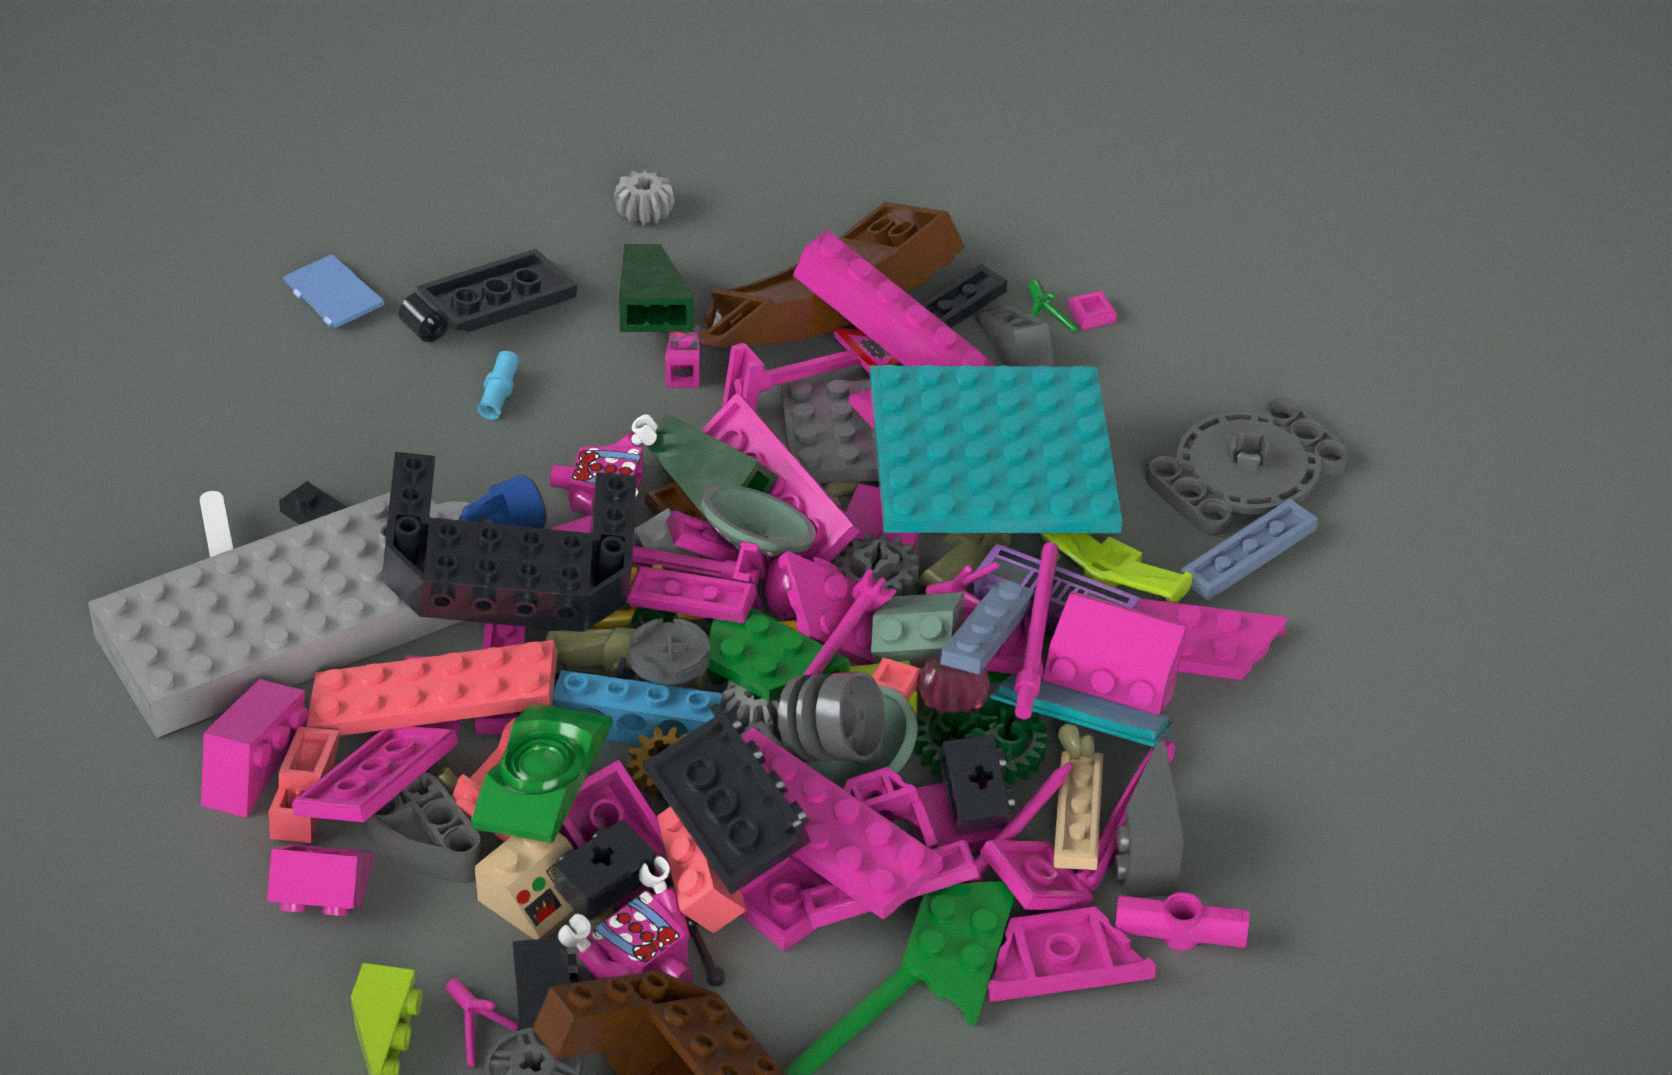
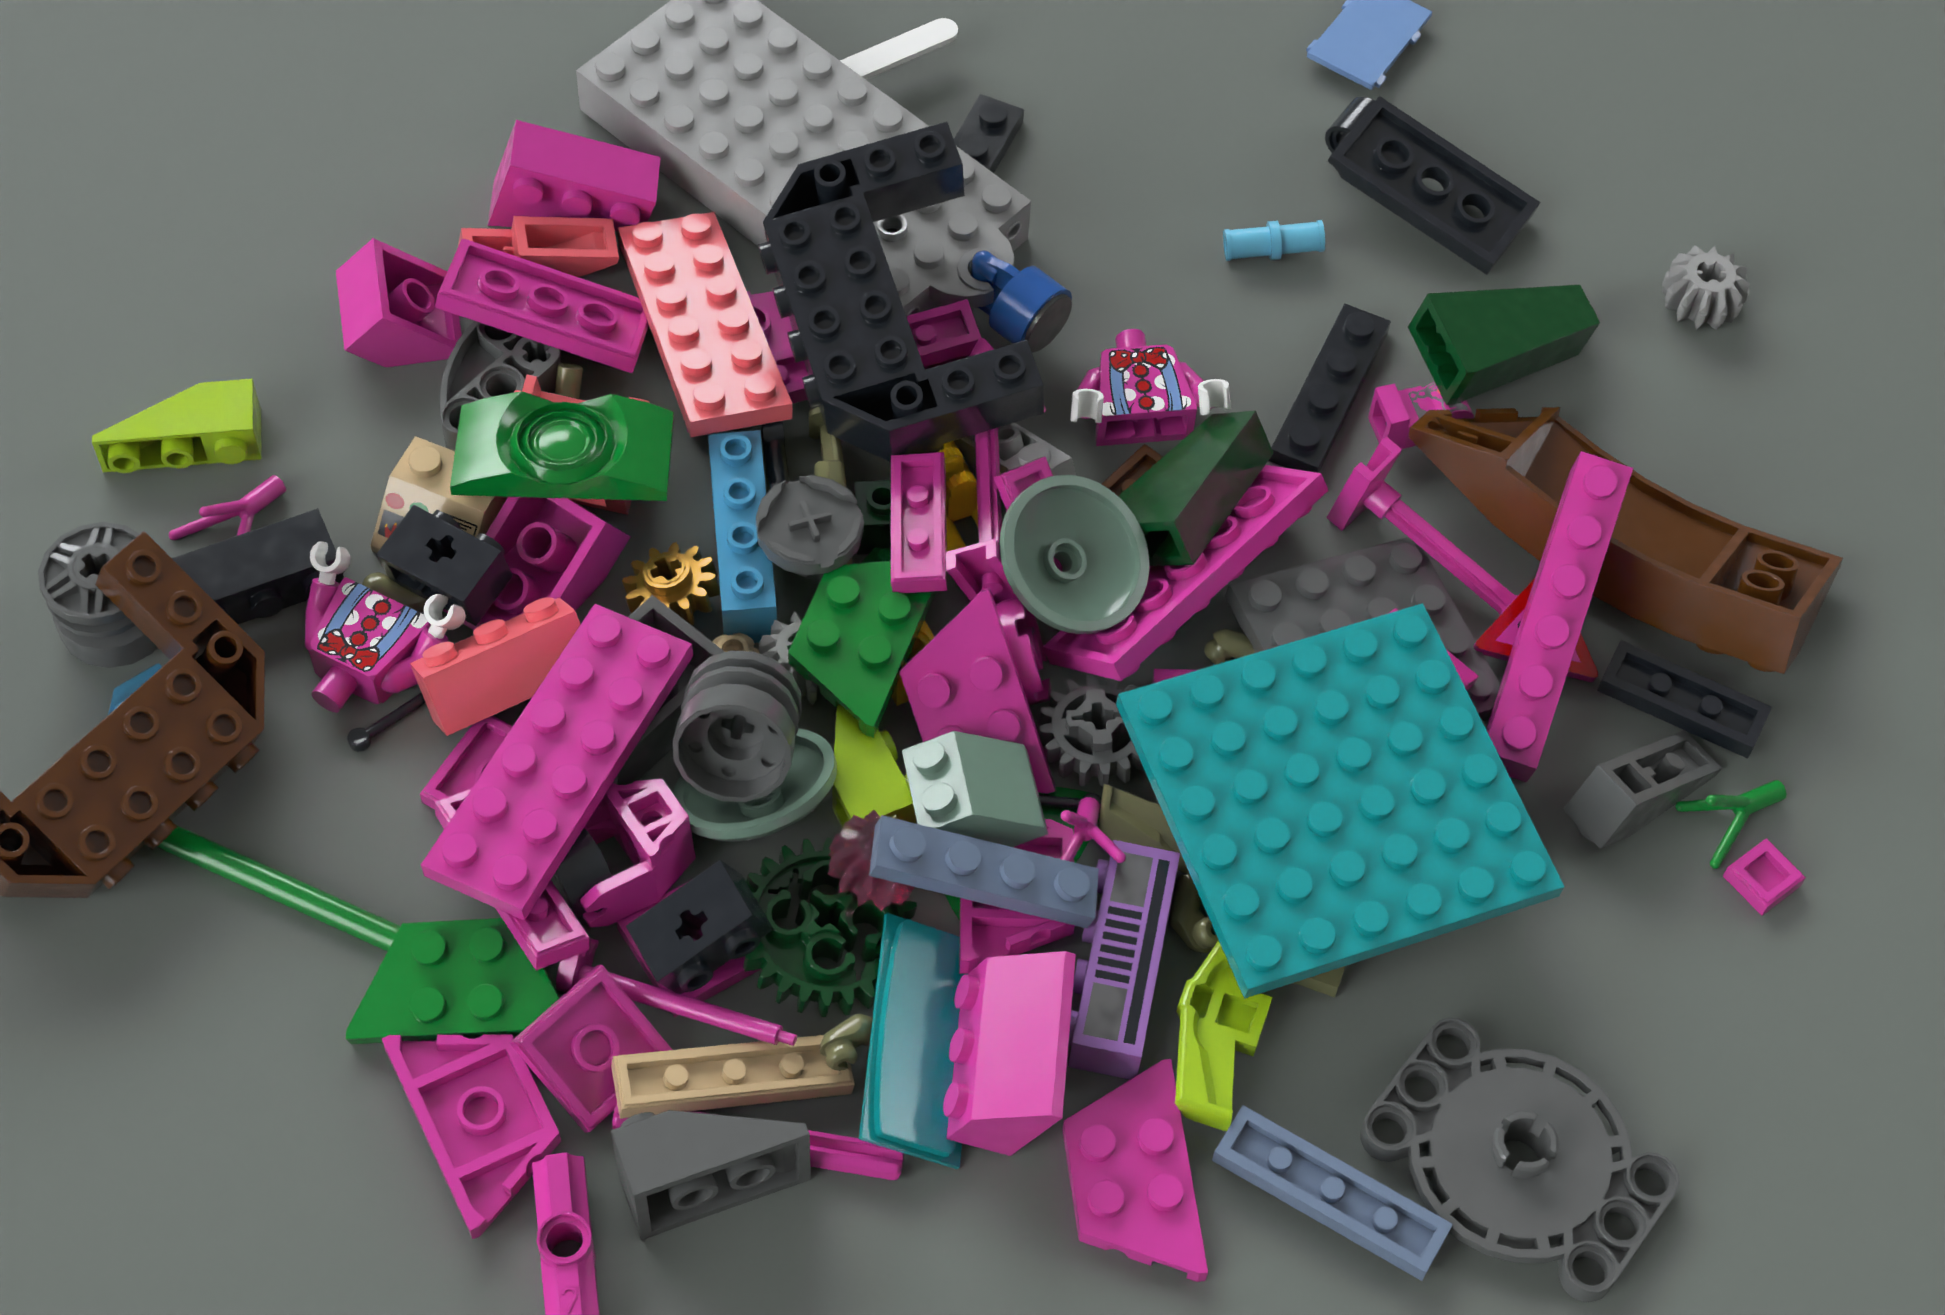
camera: 70 degrees right, 15 degrees up
(633, 390) = (1329, 390): none -> black plate
(729, 800) = (534, 643): black bracket -> none
(867, 595) = (987, 715): dark pink piece -> none
(898, 677) = (860, 789): coral tile -> none
(1028, 680) = (903, 947): dark pink bar -> none

